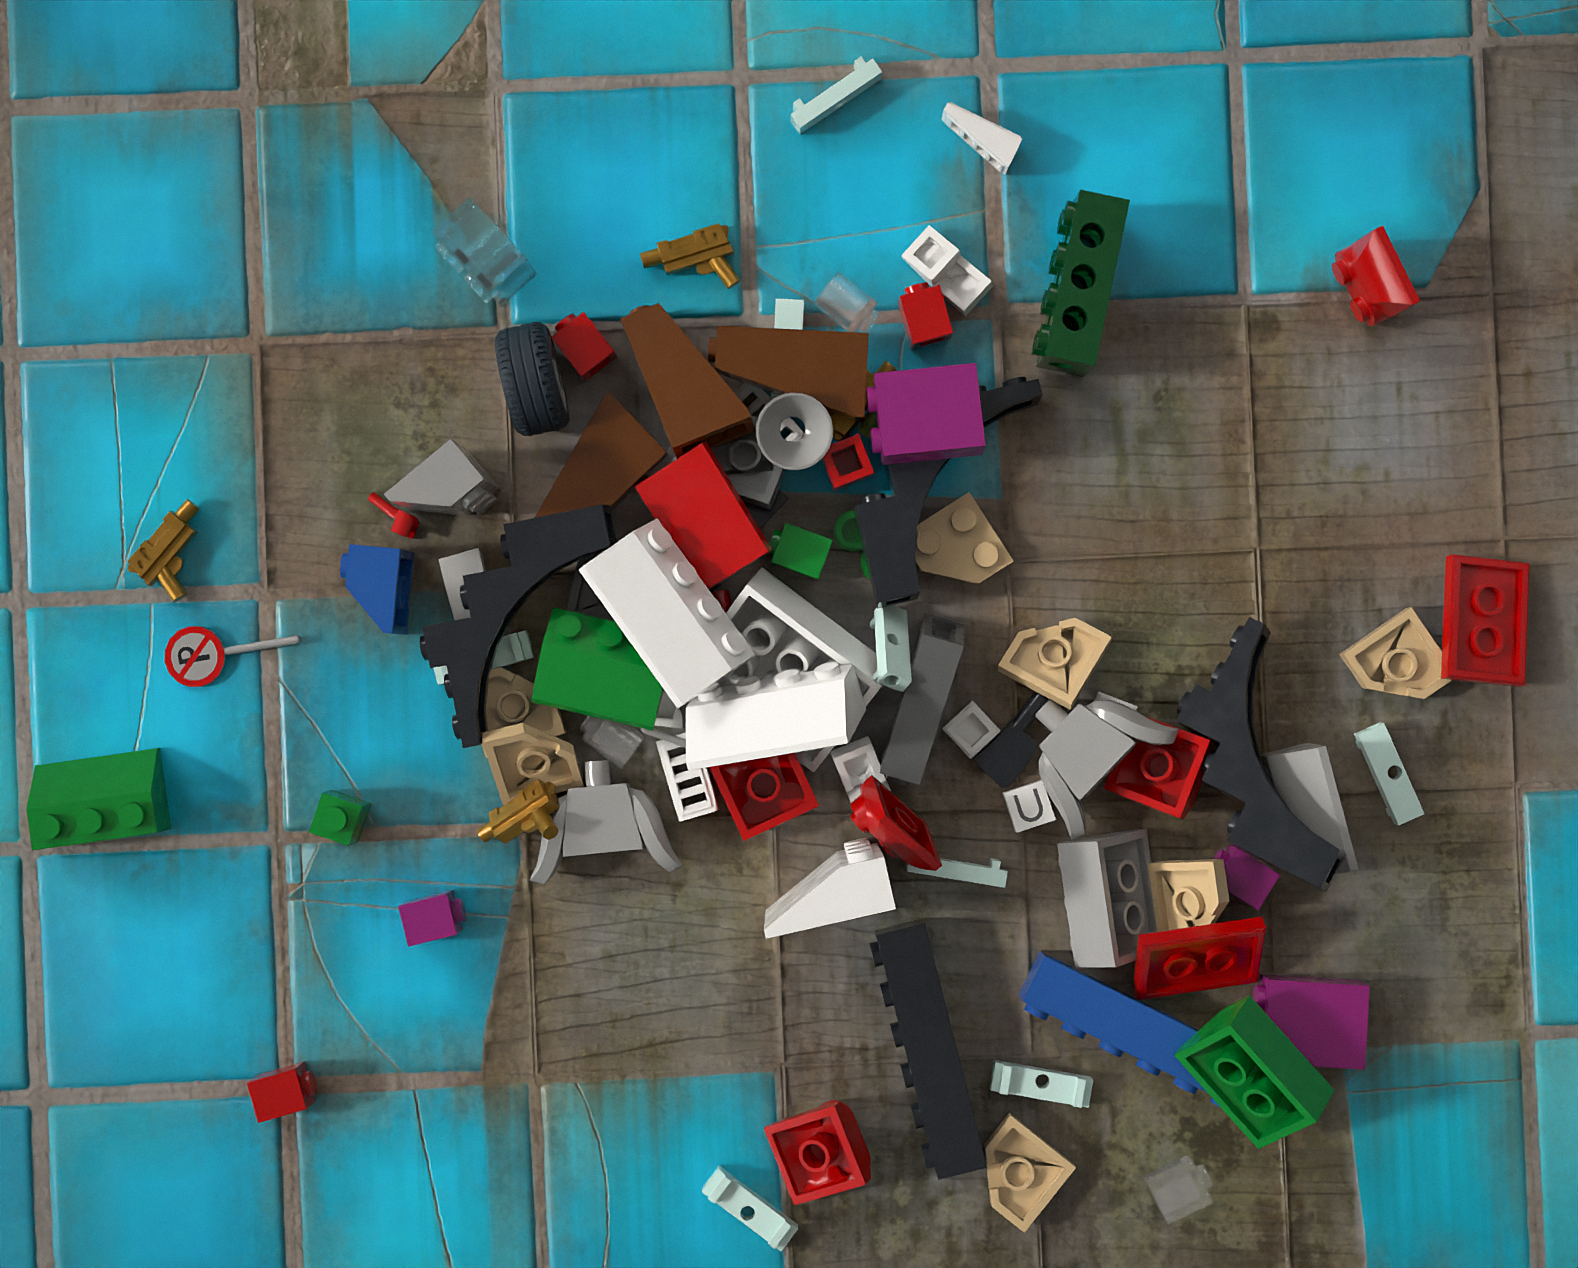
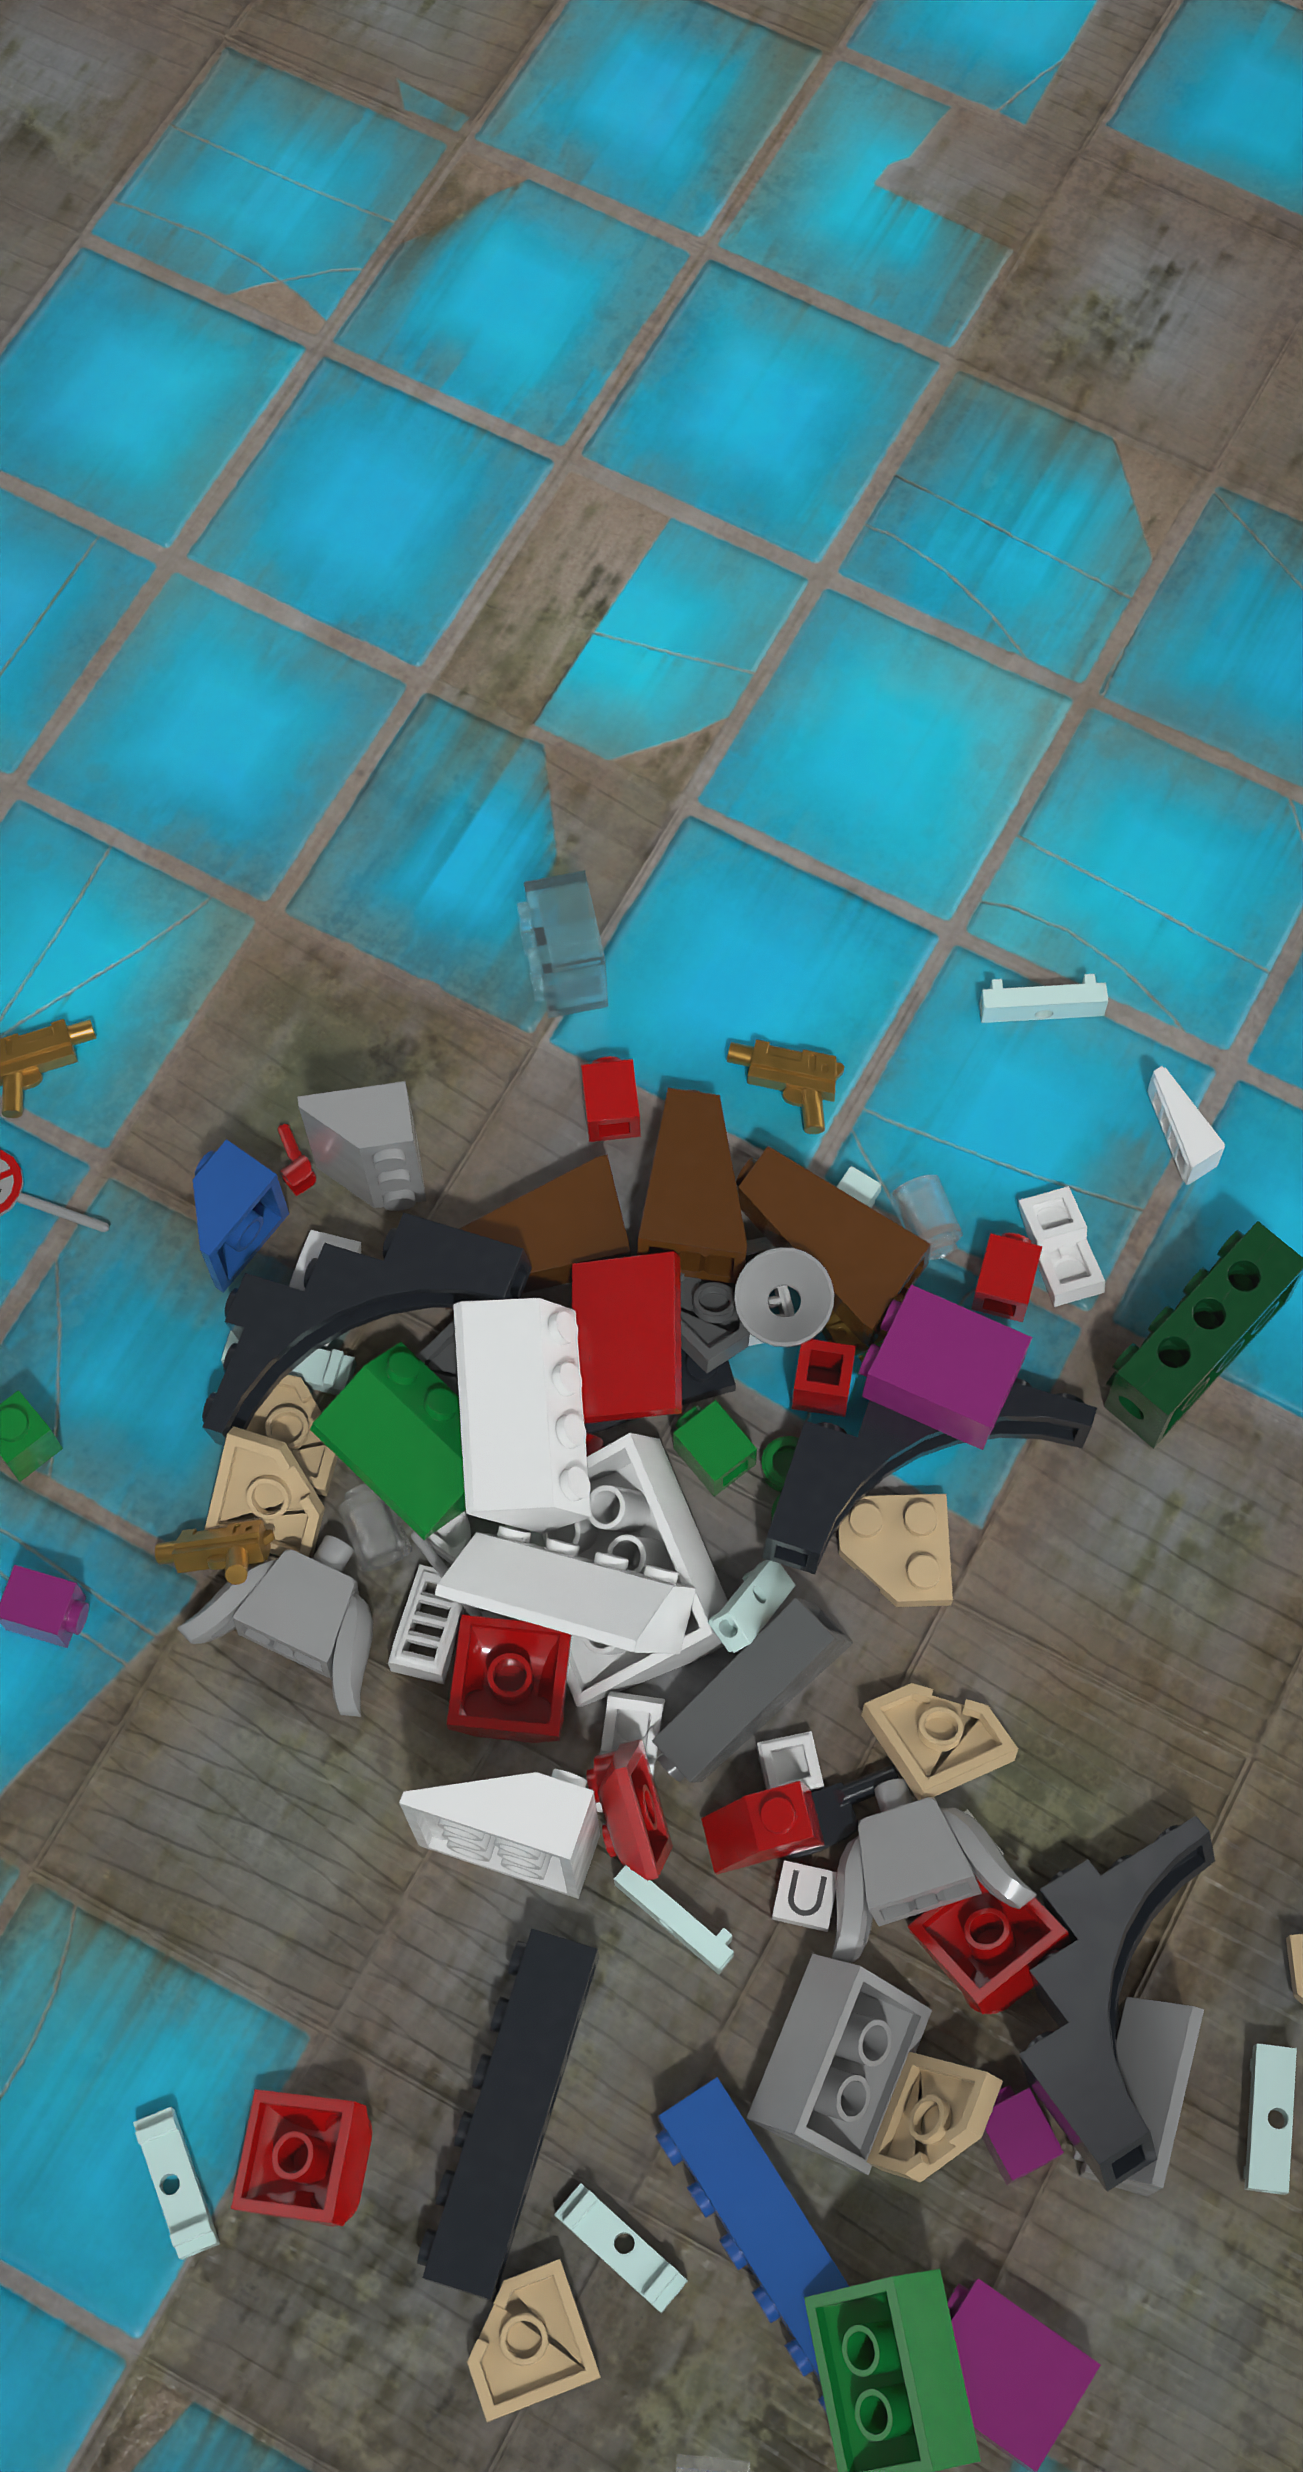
camera: 35 degrees right, 20 degrees down
(531, 379) = (532, 1094): black wheel -> none
(980, 783) = (762, 1827): none -> red slope
(1198, 958) = (905, 2197): red tile -> none

